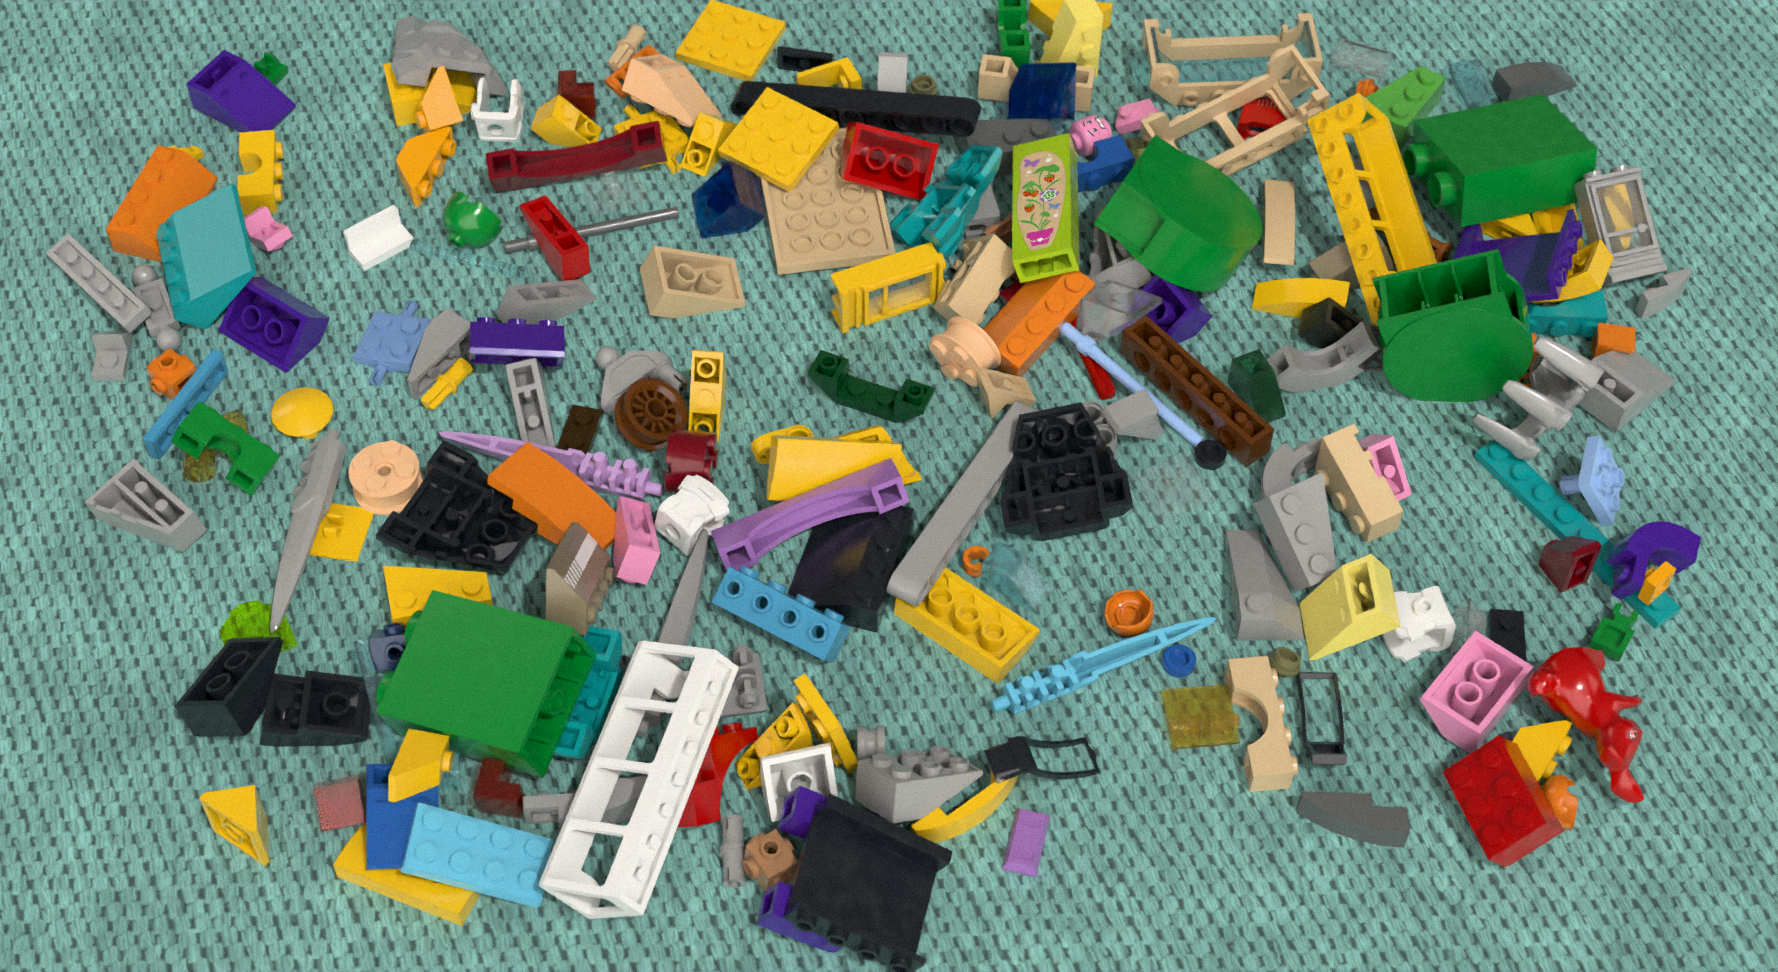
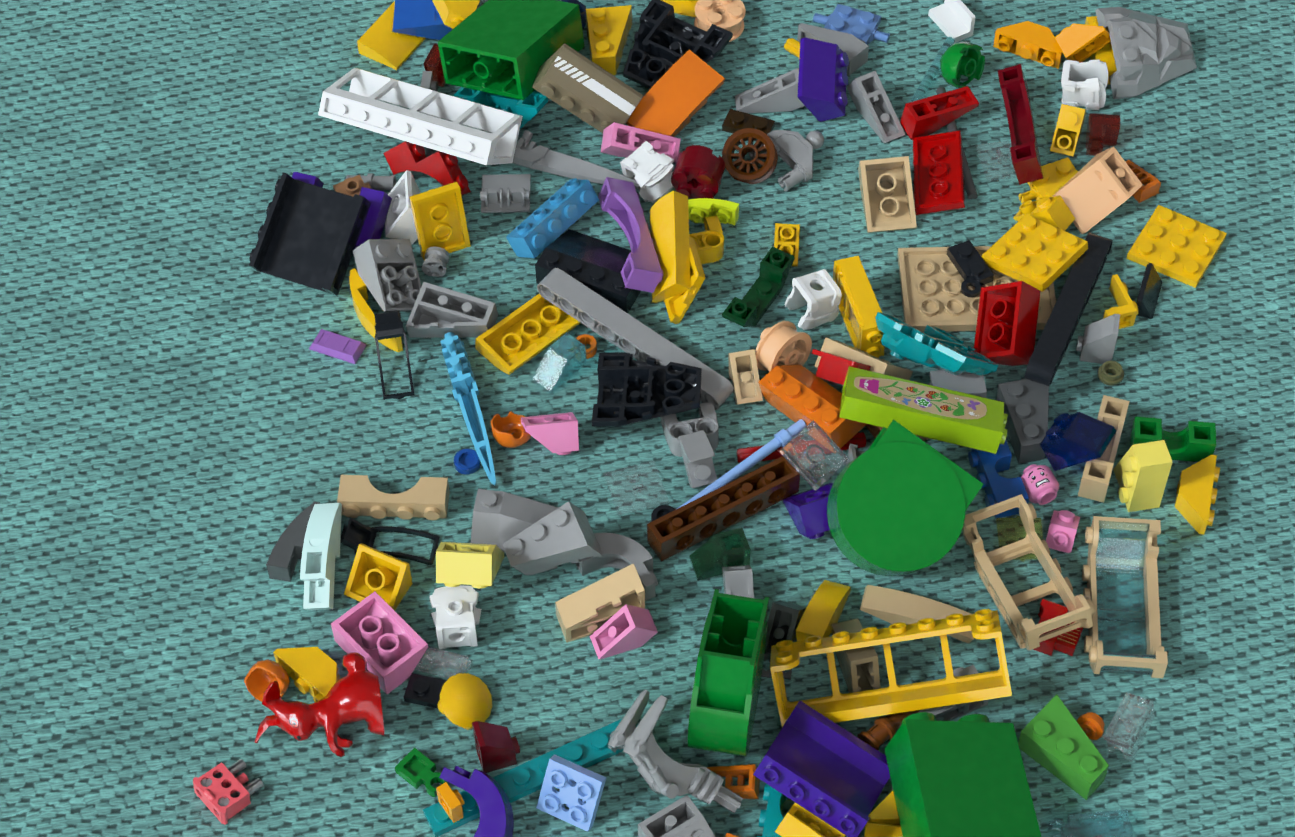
camera: 100 degrees right, 0 degrees up
(476, 855) = (396, 40): medium azure plate -> none
(595, 470) = (714, 111): lavender piece -> none
(626, 238) = (938, 172): none -> red tile
(627, 47) = (1166, 174): tan axle -> none
(707, 390) = (764, 191): yellow slope -> none
(728, 202) = (976, 225): clear blue slope -> none
(741, 442) = (704, 207): none -> neon yellow slope
(782, 379) = (787, 239): none -> yellow slope
(801, 198) = (970, 266): none -> black hinge
(866, 330) = (819, 294): none -> white piece
(966, 703) = (446, 310): none -> light grey wedge
(993, 286) = (835, 367): none -> red panel
(1129, 558) = (554, 431): none -> bright pink slope
(1200, 716) = (410, 462): clear yellow hinge -> none
(1285, 662) = (453, 524): olive plate -> none
(1374, 774) = (319, 554): none -> light aqua slope
(1385, 718) = (378, 573): none -> yellow slope
(1503, 801) = (272, 630): red brick -> none
(1516, 600) = (465, 700): none -> yellow dish
(1710, 825) = (223, 792): none -> coral piece

